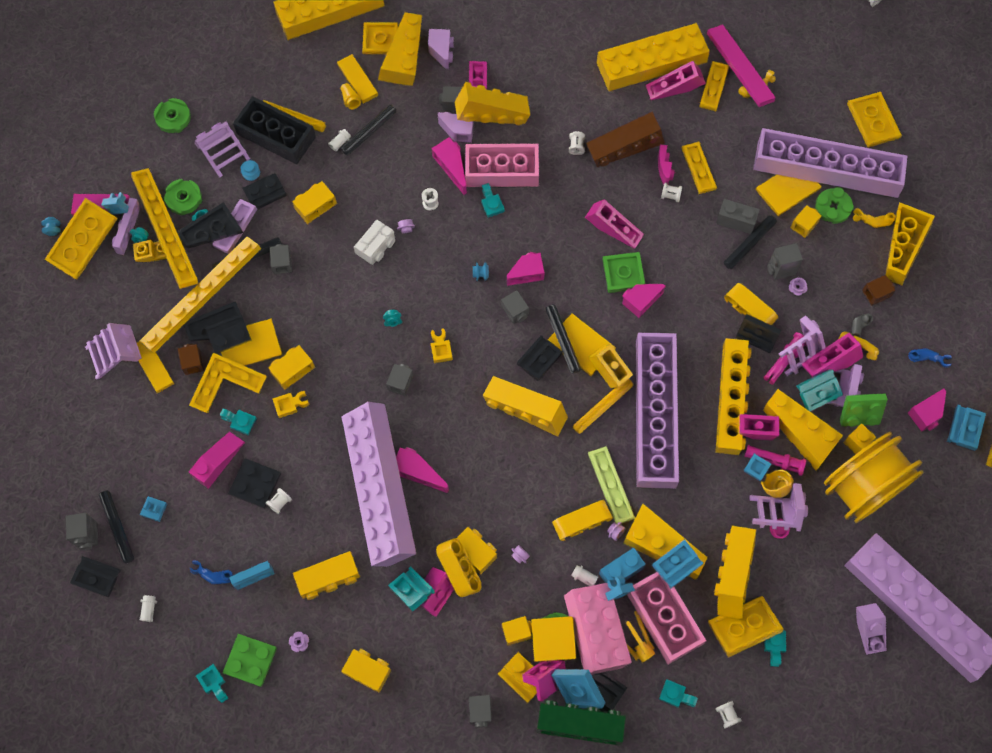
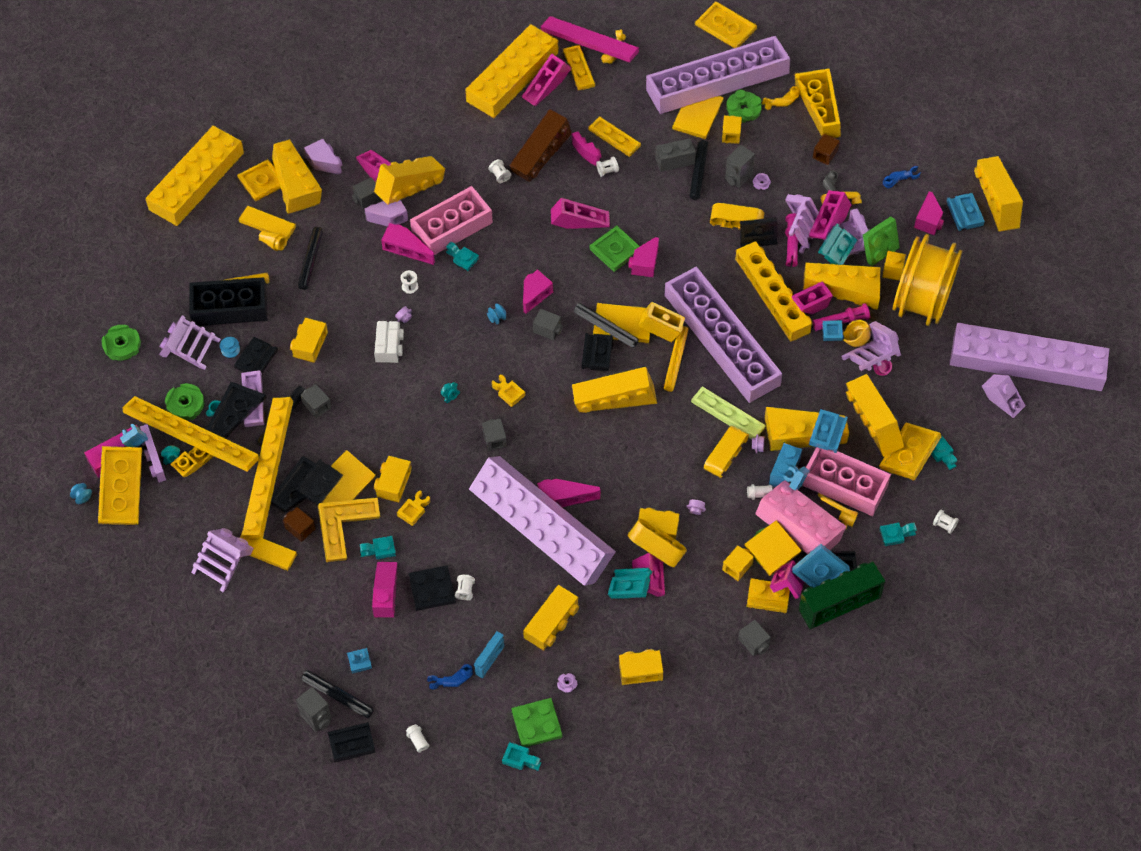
camera: 35 degrees left, 10 degrees down
(339, 140) = (291, 279): white pin -> none

